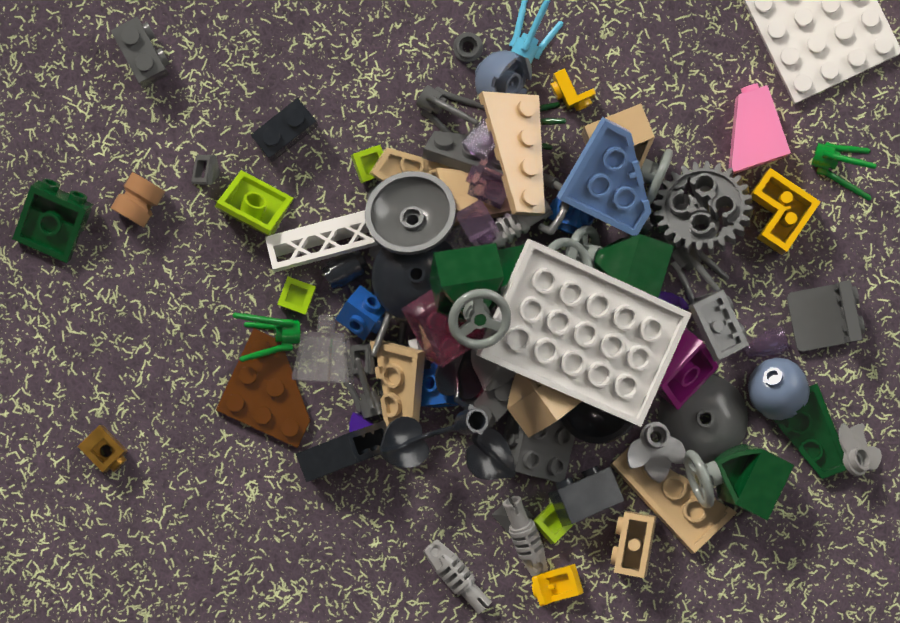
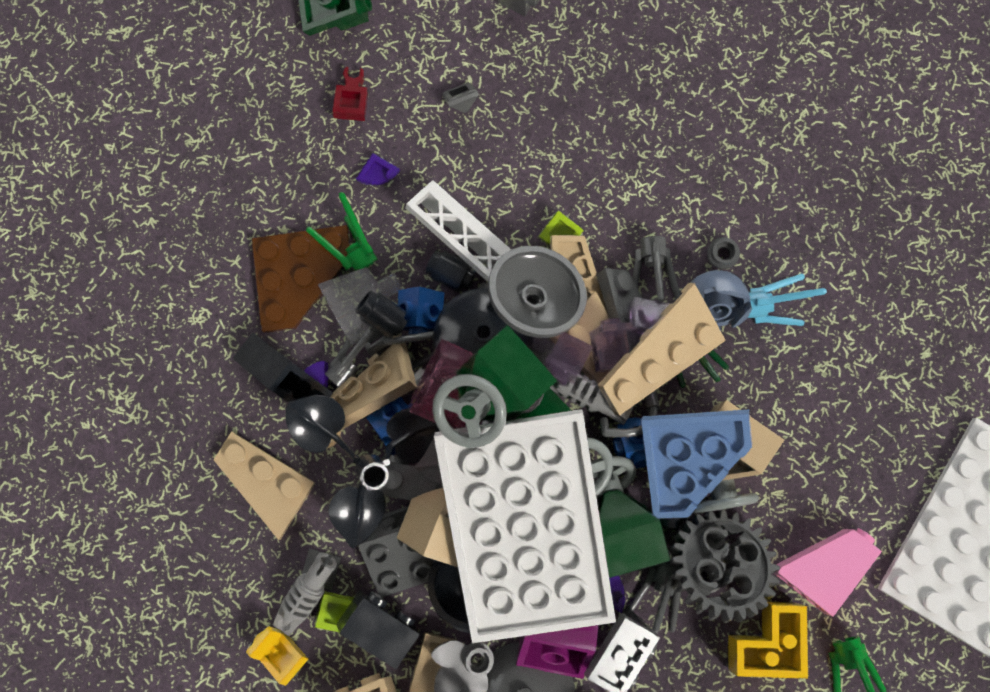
camera: 60 degrees right, 5 degrees down
(93, 445) = (150, 154): pearl gold brick -> none
(138, 199) = (395, 54): medium nougat wheel -> none
(149, 259) = (351, 98): none -> dark red plate
(223, 276) = (377, 171): none -> dark purple tile
(254, 203) = (457, 155): lime slope -> none
(284, 130) = (540, 138): black brick -> none
(296, 295) = (399, 244): lime plate -> none
(351, 343) = (381, 314): none -> black brick
(418, 517) = (264, 481): none -> tan wing
(456, 575) = (230, 552): light grey hinge -> none
(564, 89) = (745, 362): yellow bracket -> none

